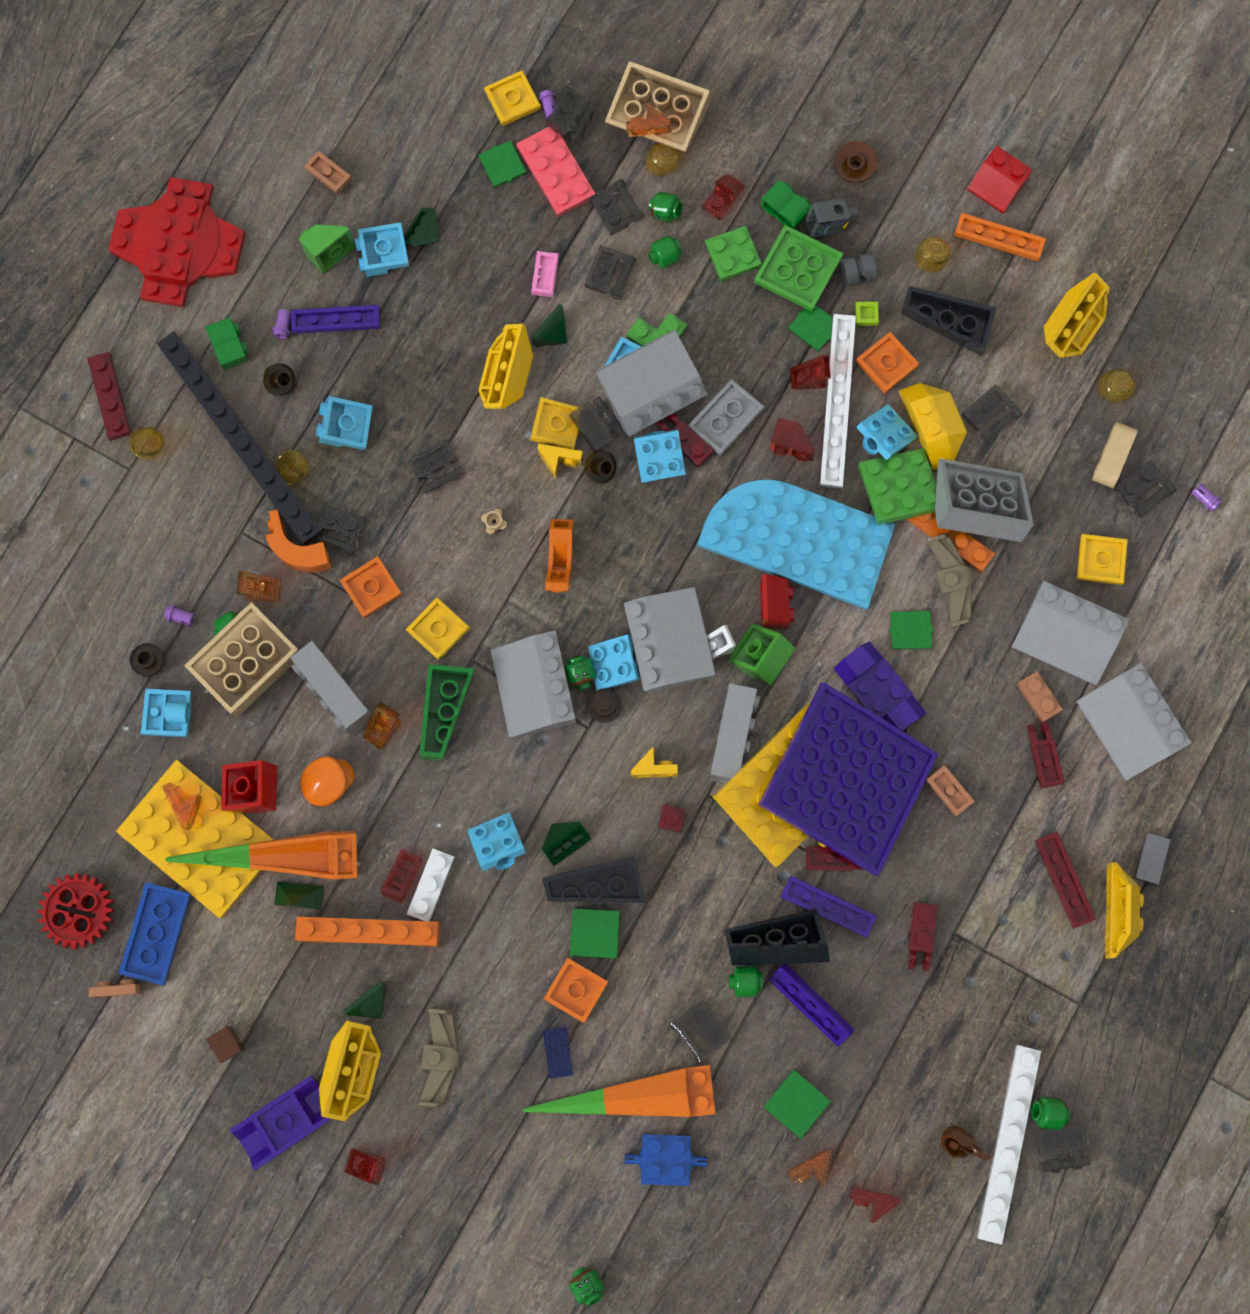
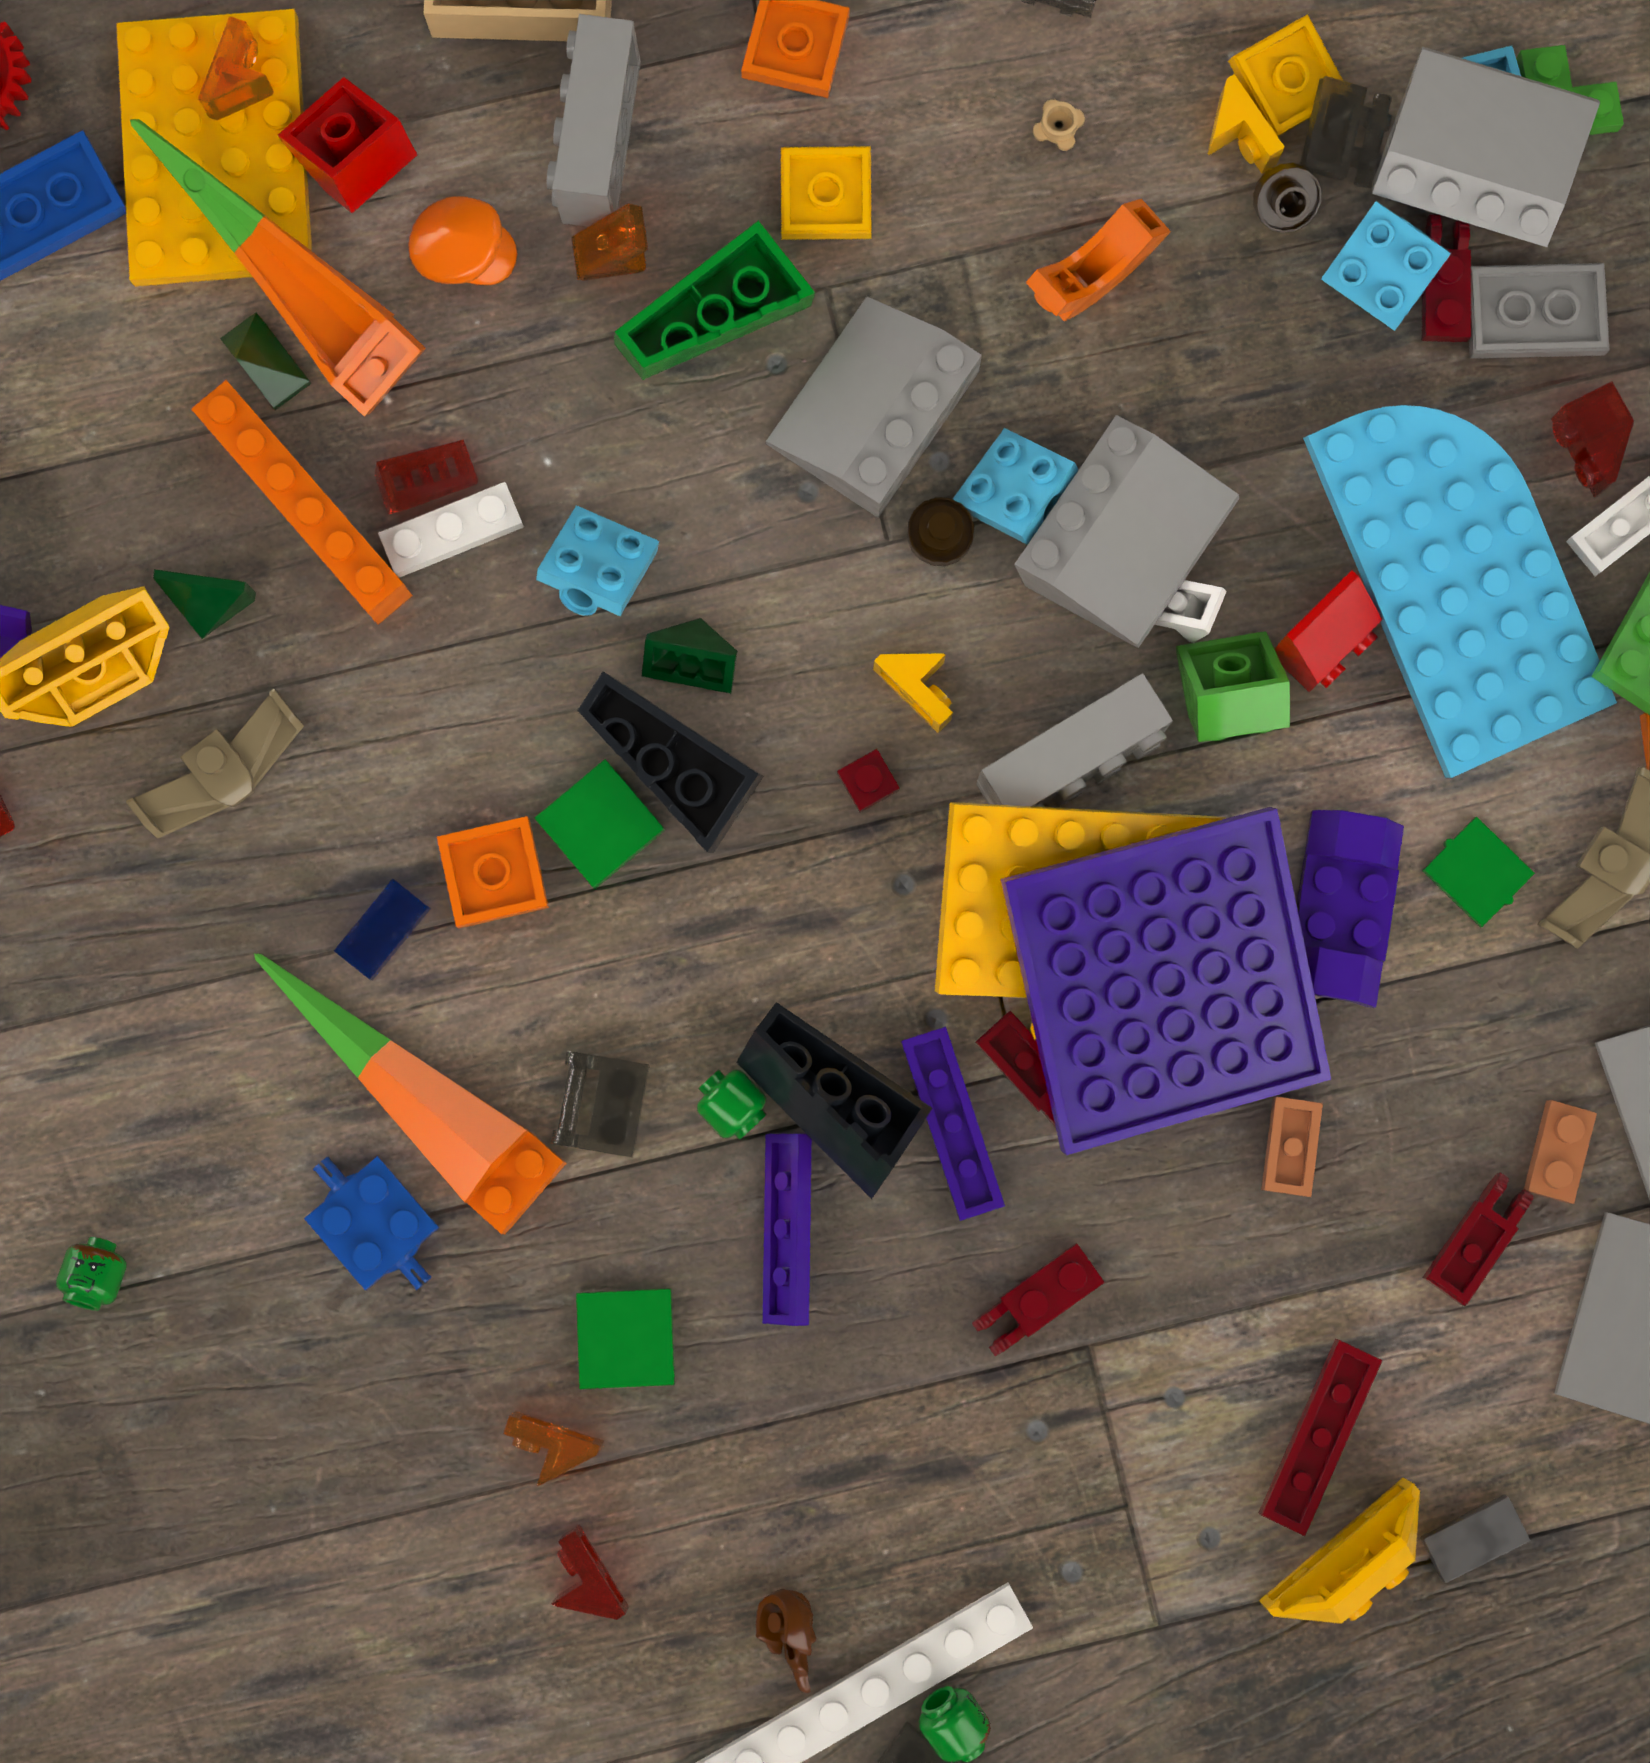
camera: 40 degrees right, 5 degrees up
(580, 672) = (955, 450): green head -> none

